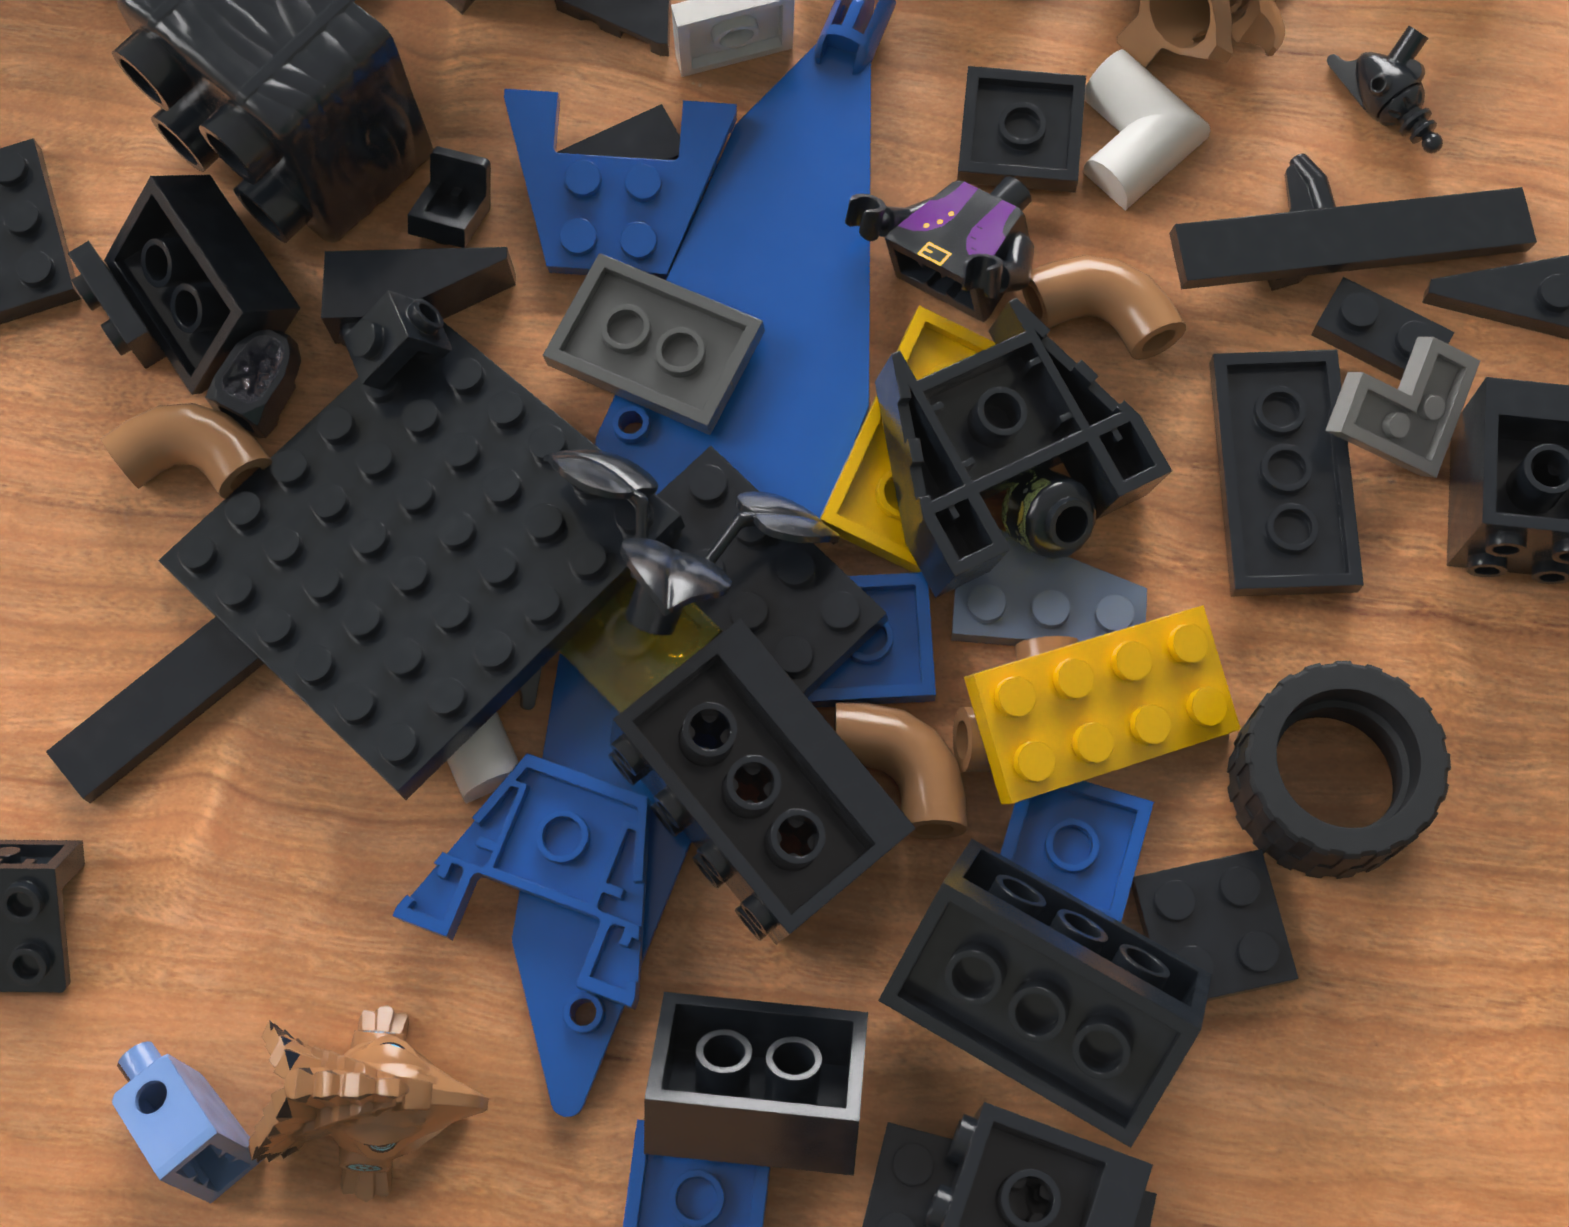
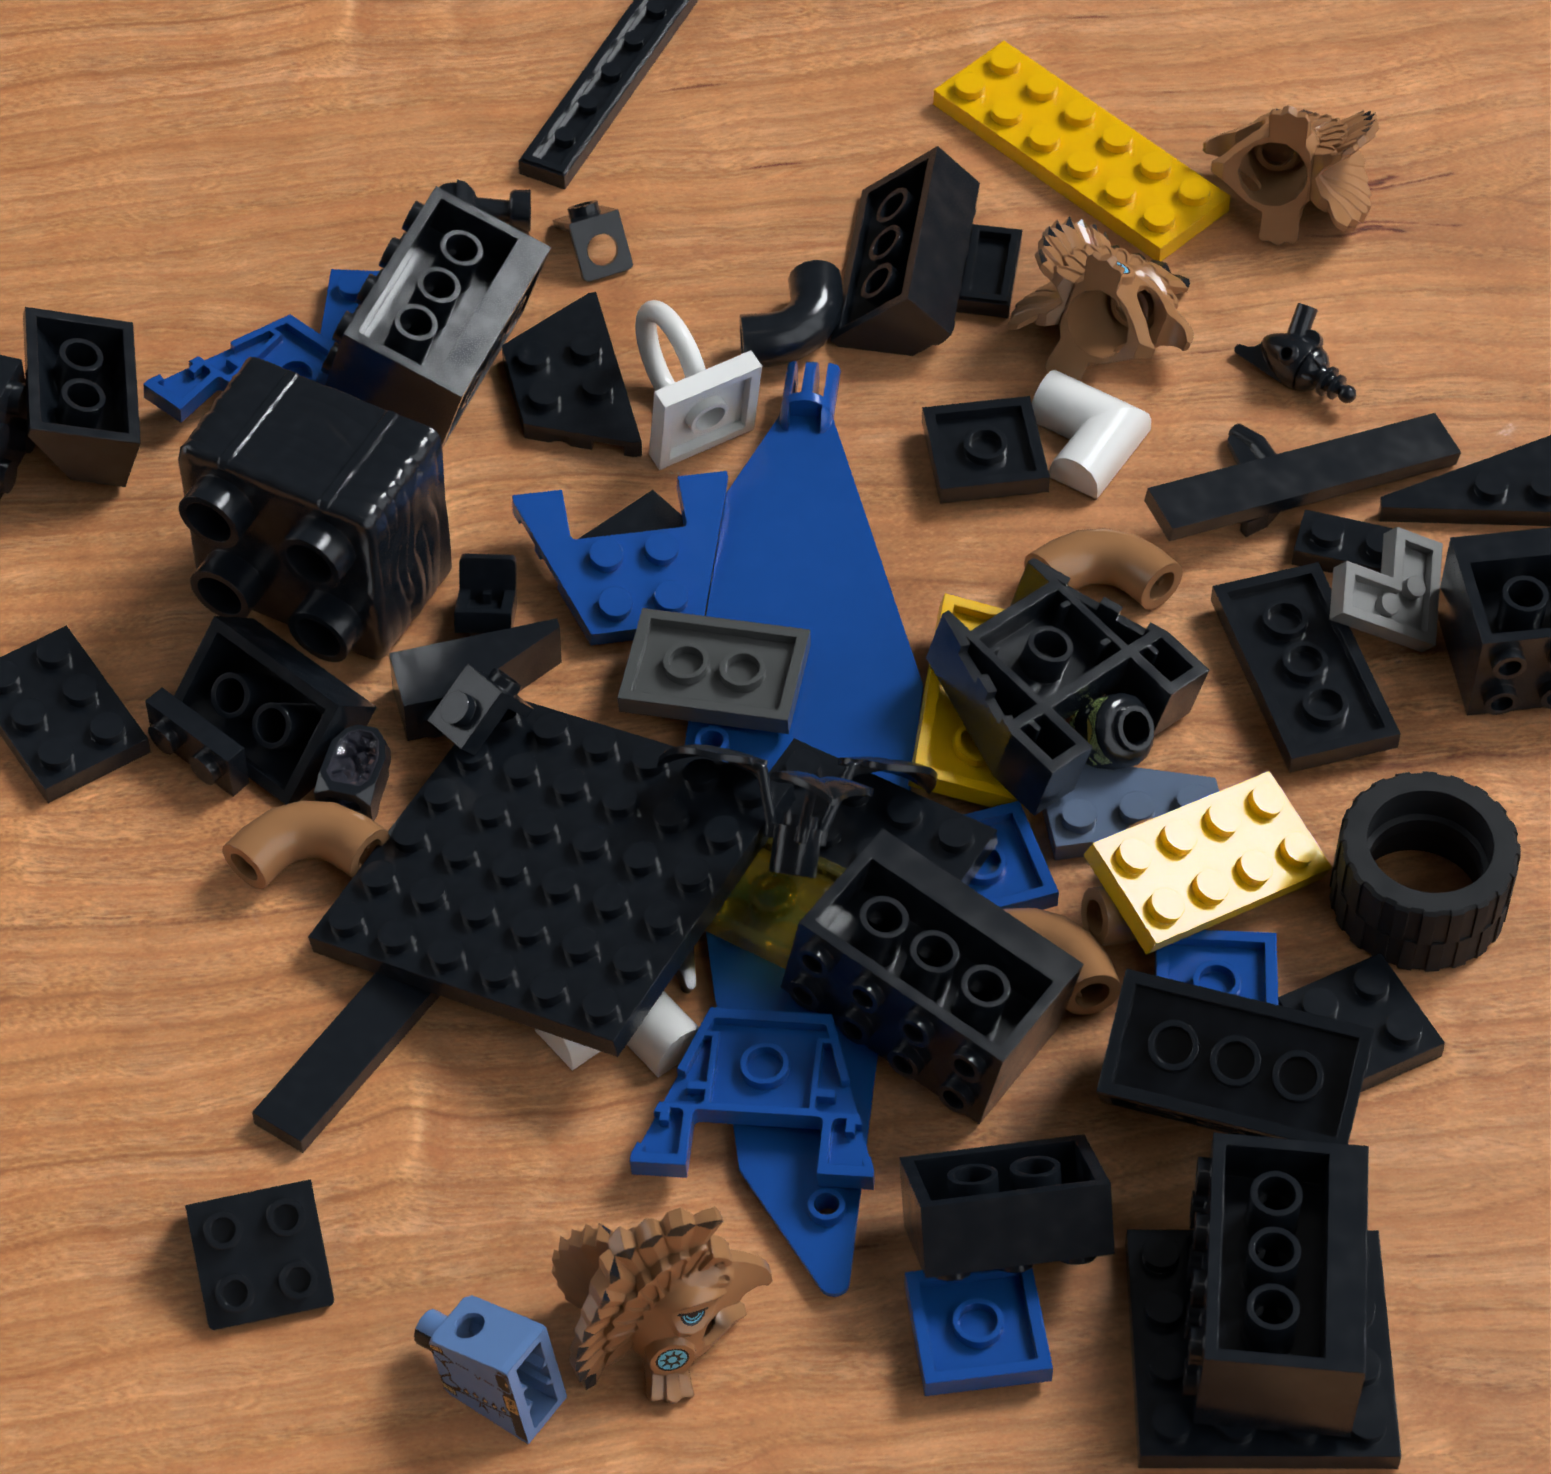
camera: 20 degrees left, 20 degrees down
(956, 244) = (959, 544): black torso -> none

